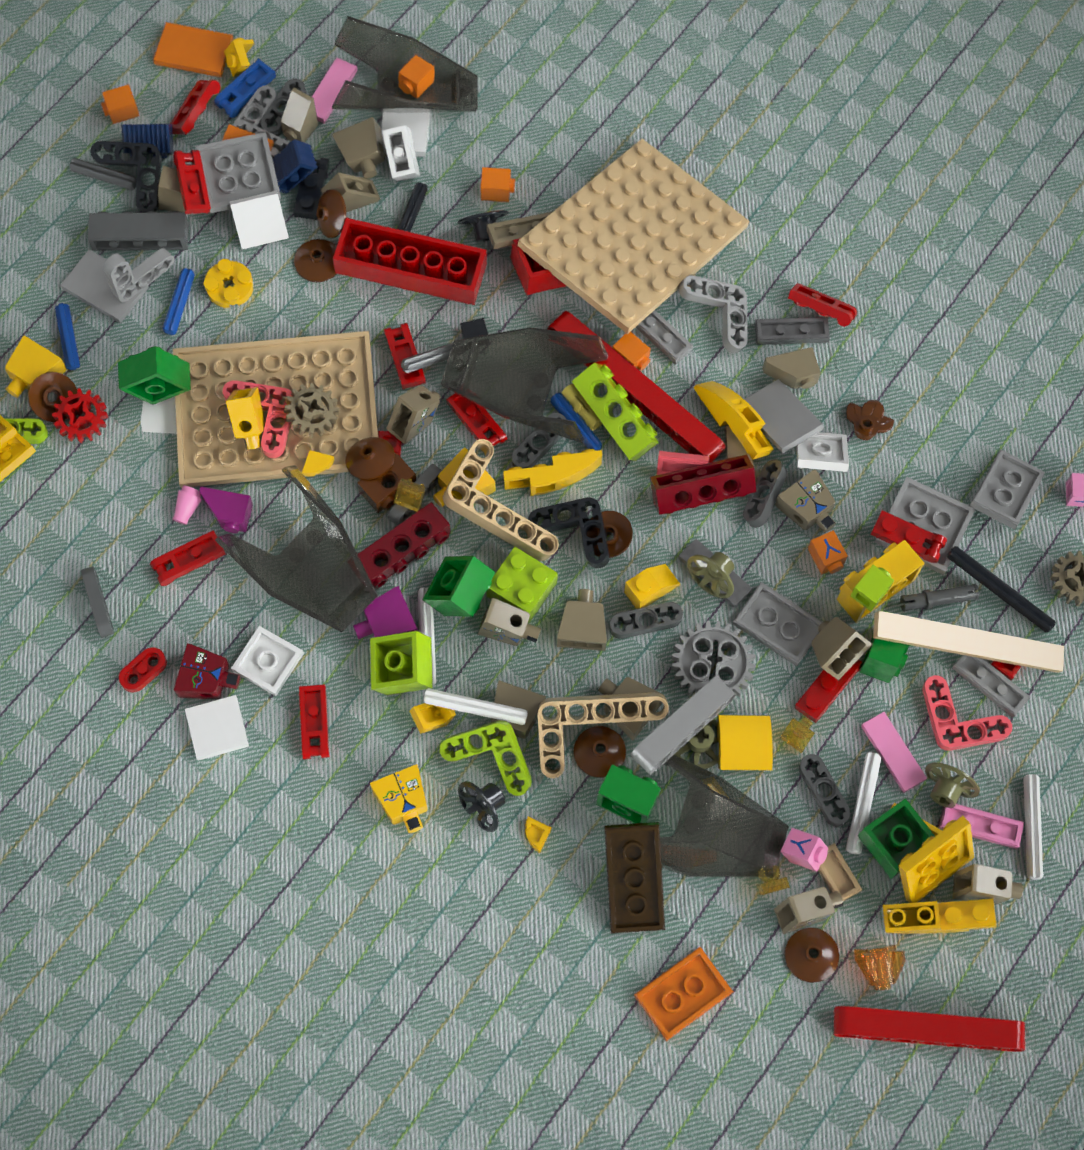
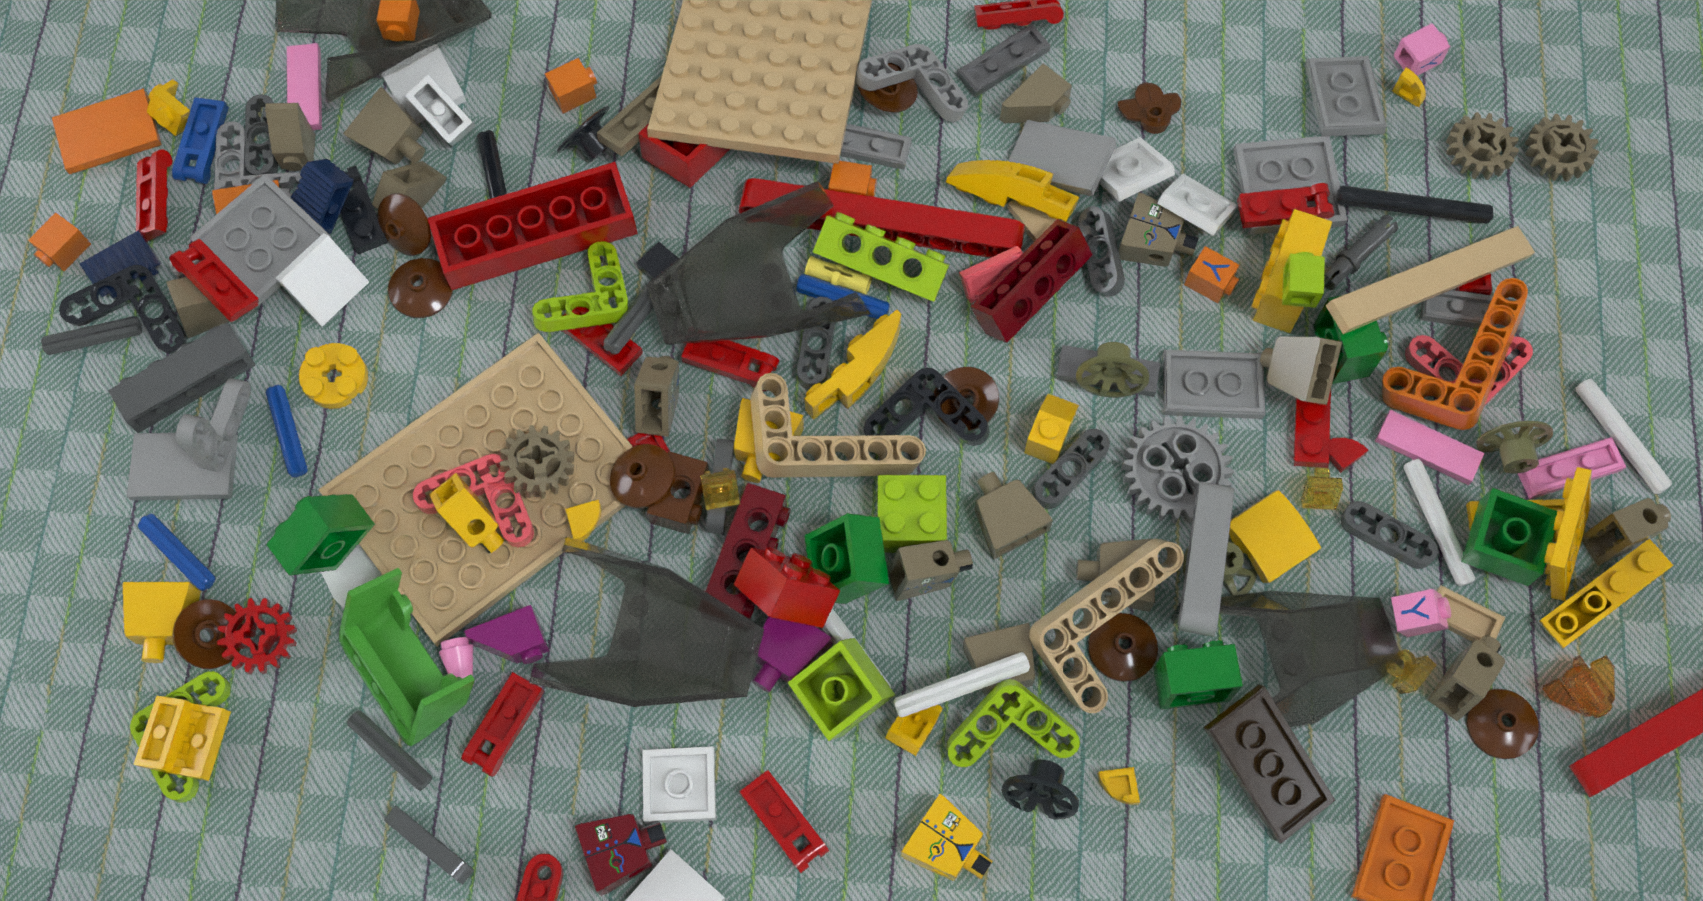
camera: 30 degrees left, 0 degrees up
(112, 532) = (389, 750): none -> dark grey axle
(149, 479) = (395, 662): none -> bright green windscreen
(408, 579) = (787, 587): none -> red brick
(416, 333) = (597, 301): none -> lime beam
(704, 314) = (893, 97): none -> reddish brown dish
(834, 720) = (1345, 452): none -> red tile
(850, 500) = (1197, 204): none -> white tile
(957, 715) = (1476, 366): none -> orange beam
(1058, 510) = (1410, 88): none -> yellow tile

